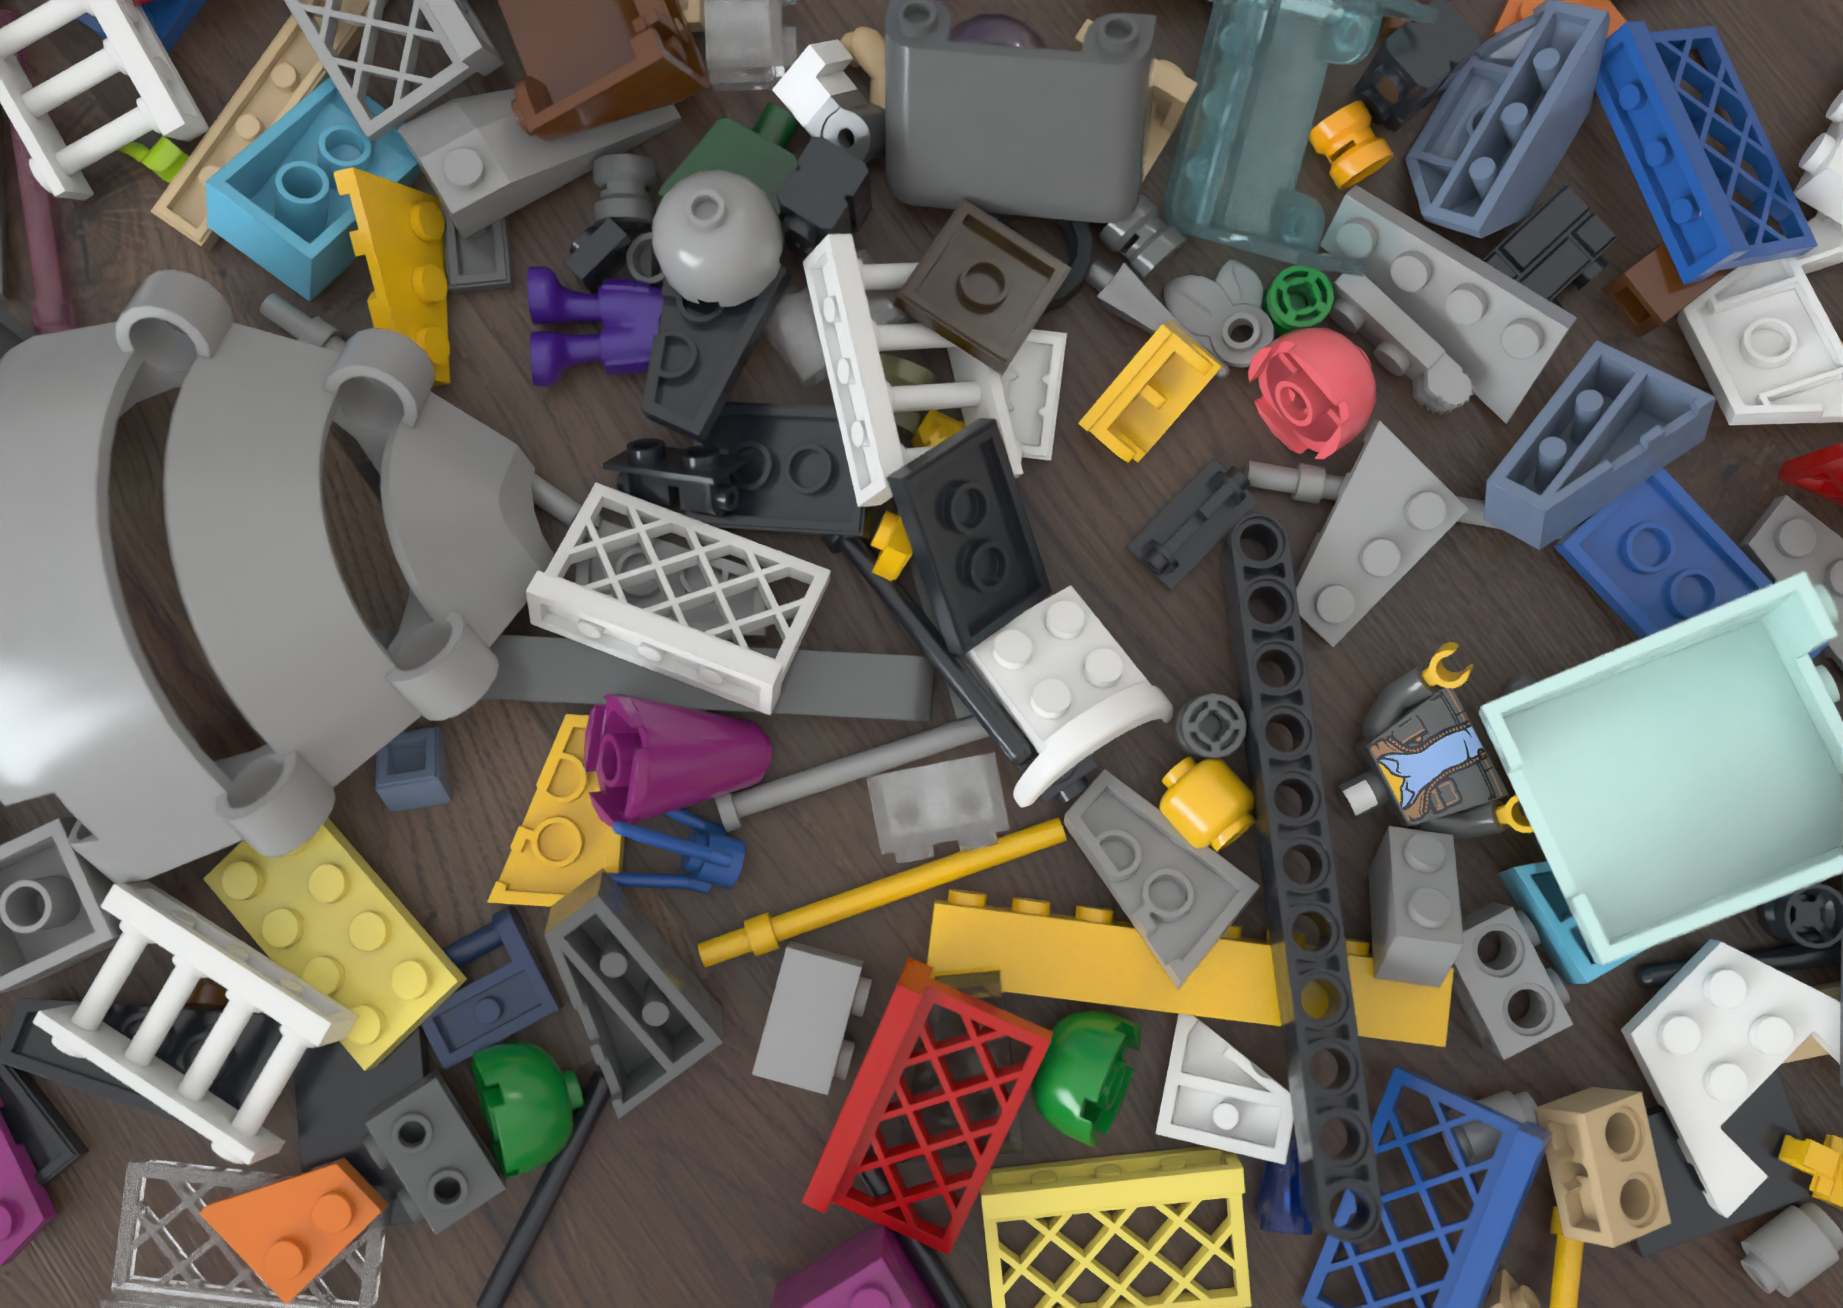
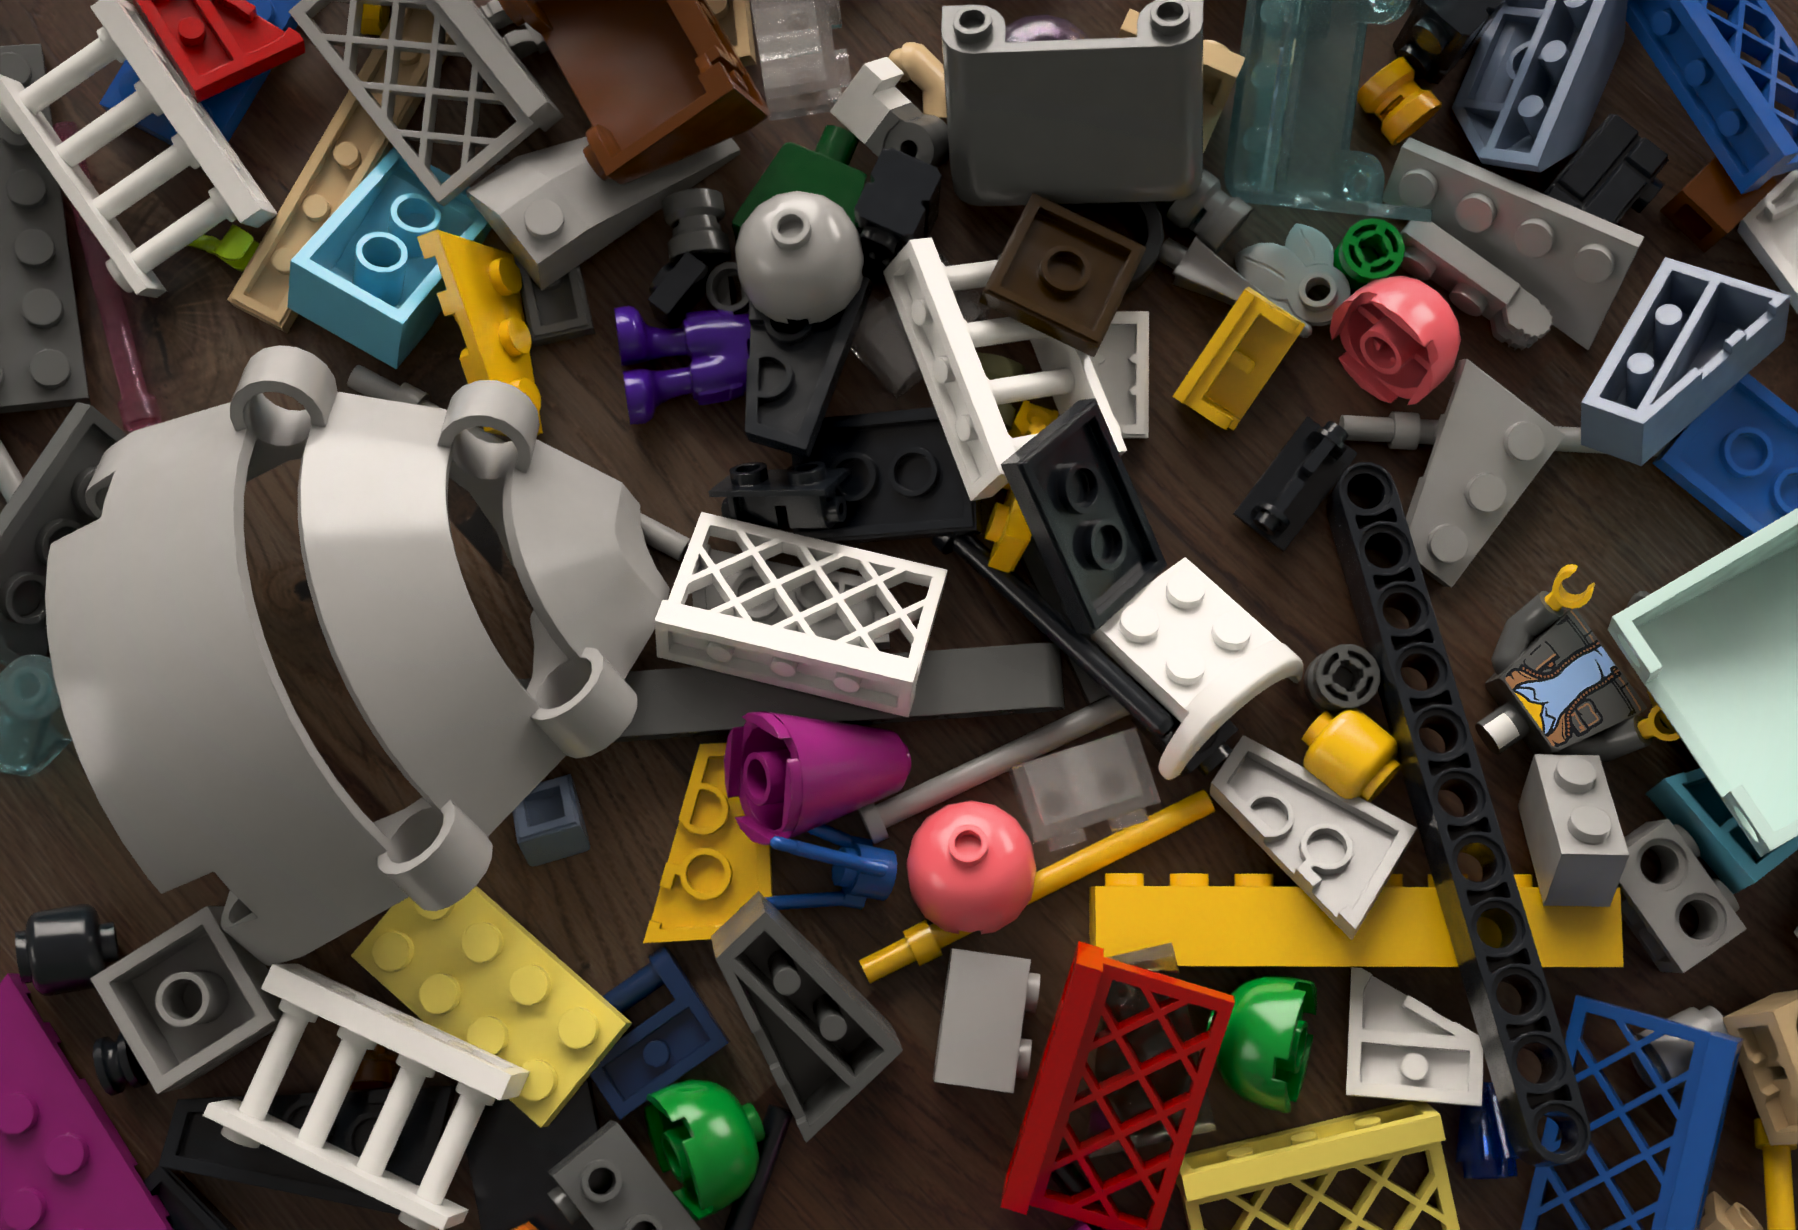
camera: 10 degrees left, 5 degrees down
(817, 868) = (971, 868): none -> coral cylinder

